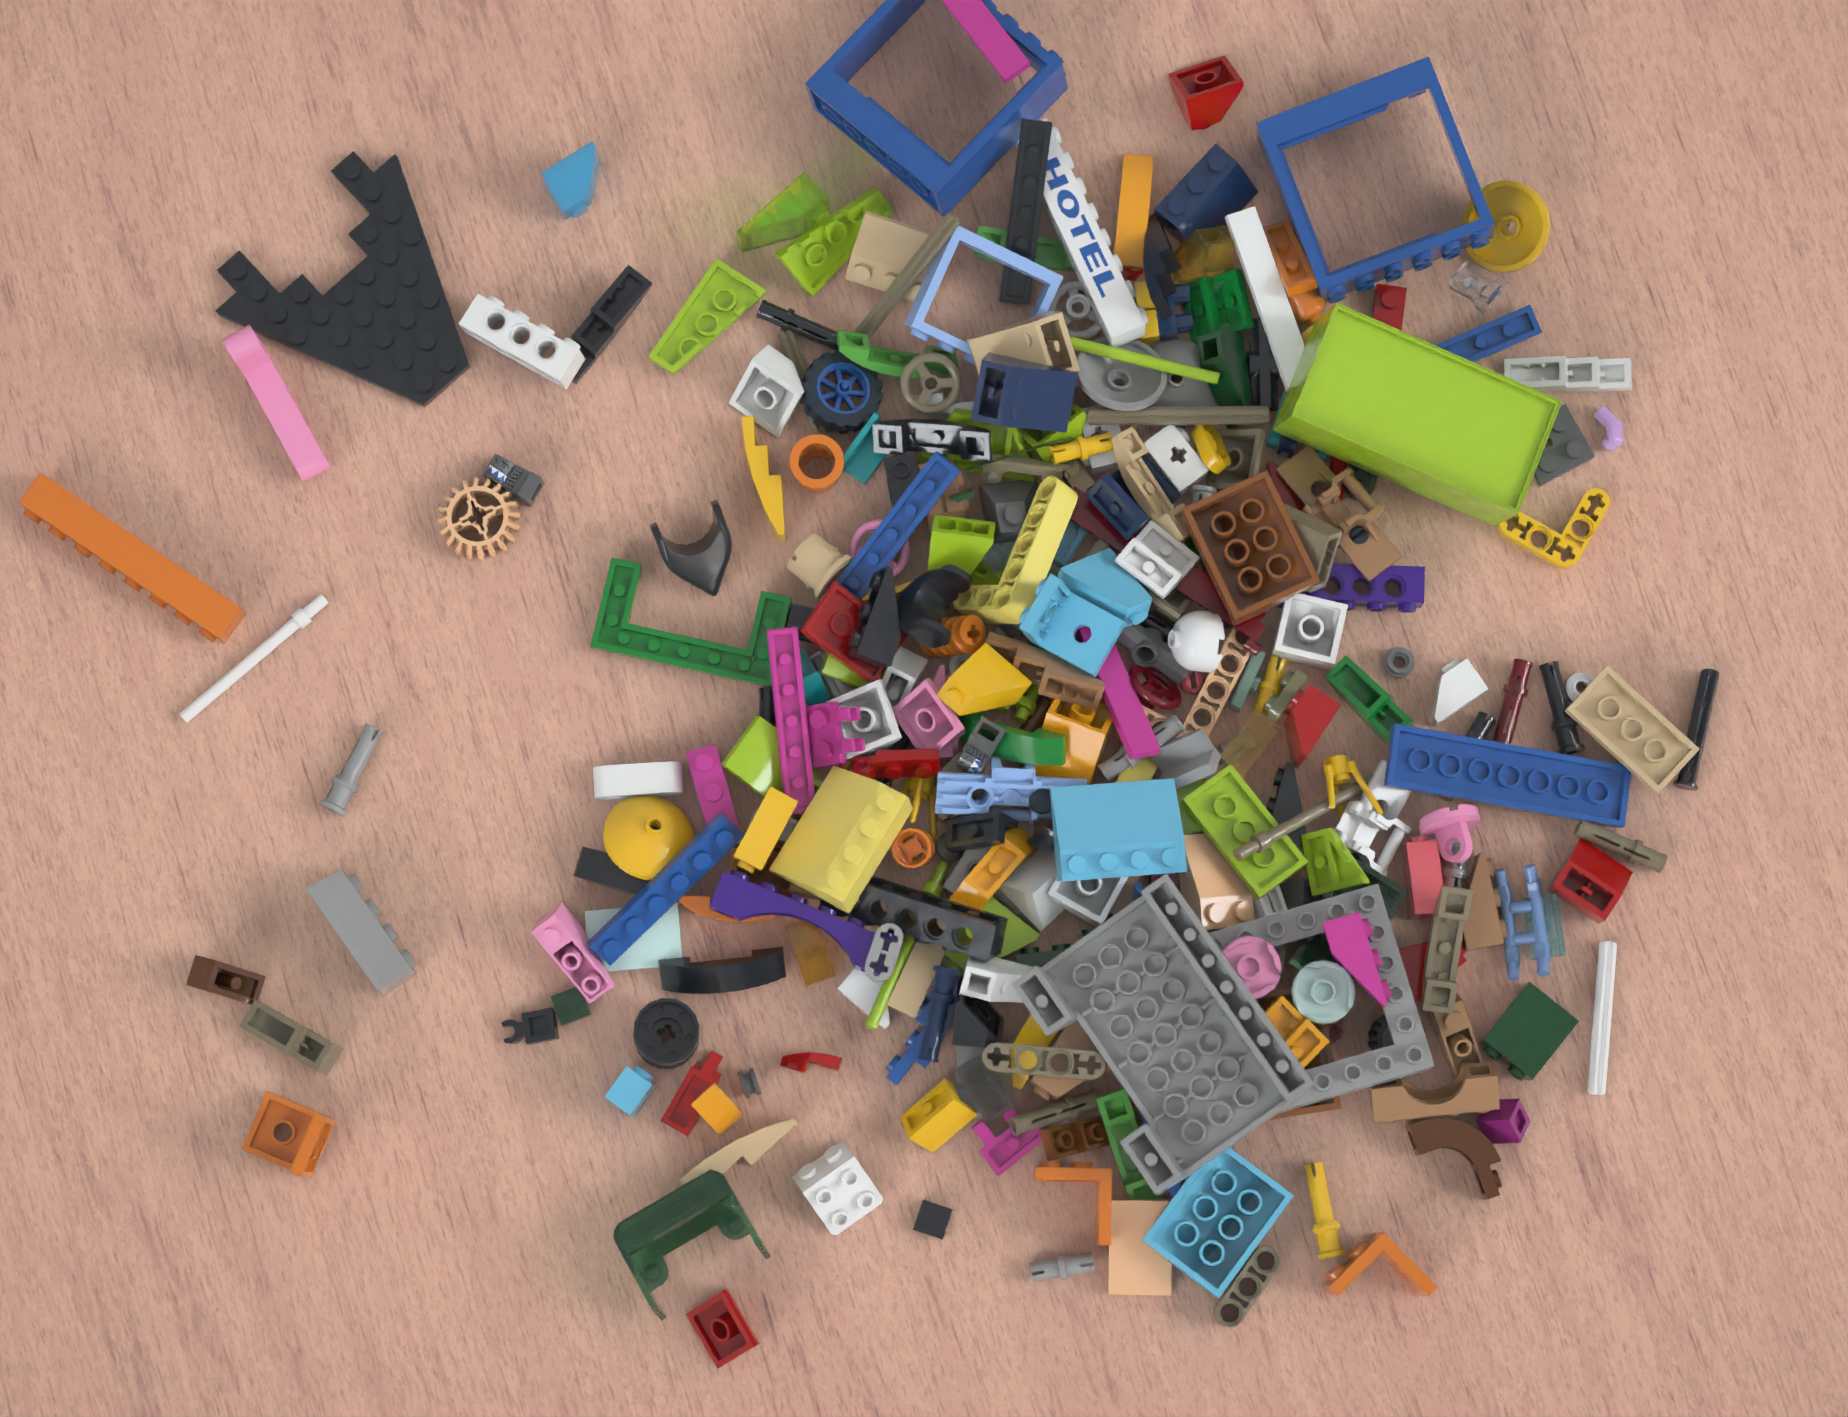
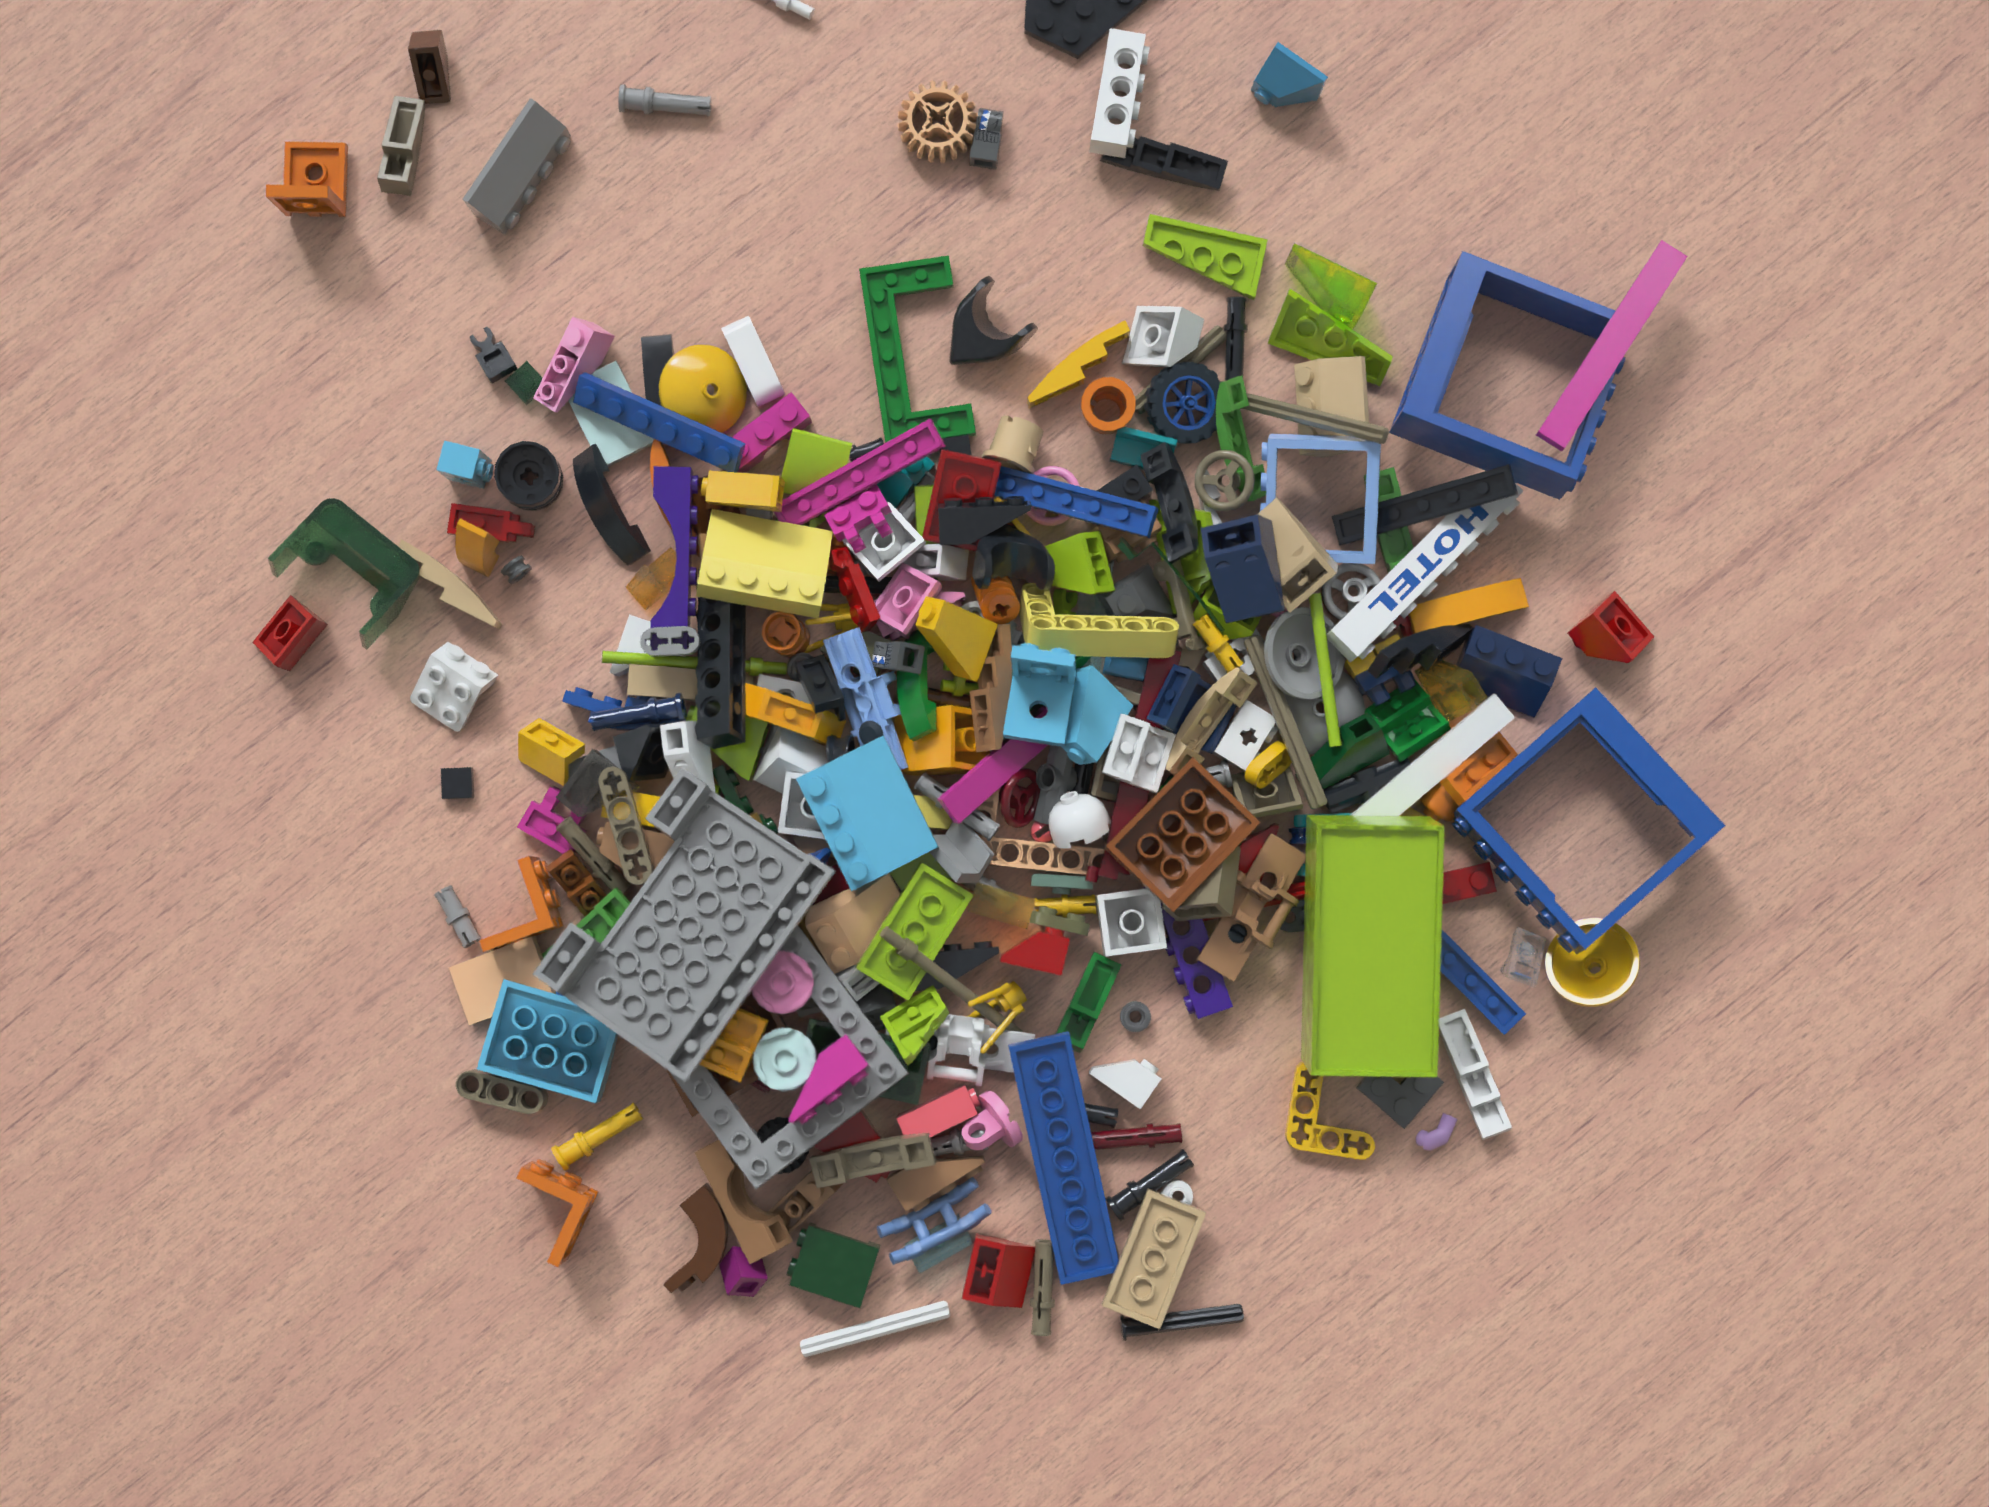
camera: 70 degrees right, 5 degrees up
(800, 1061) = (554, 608): red slope -> none

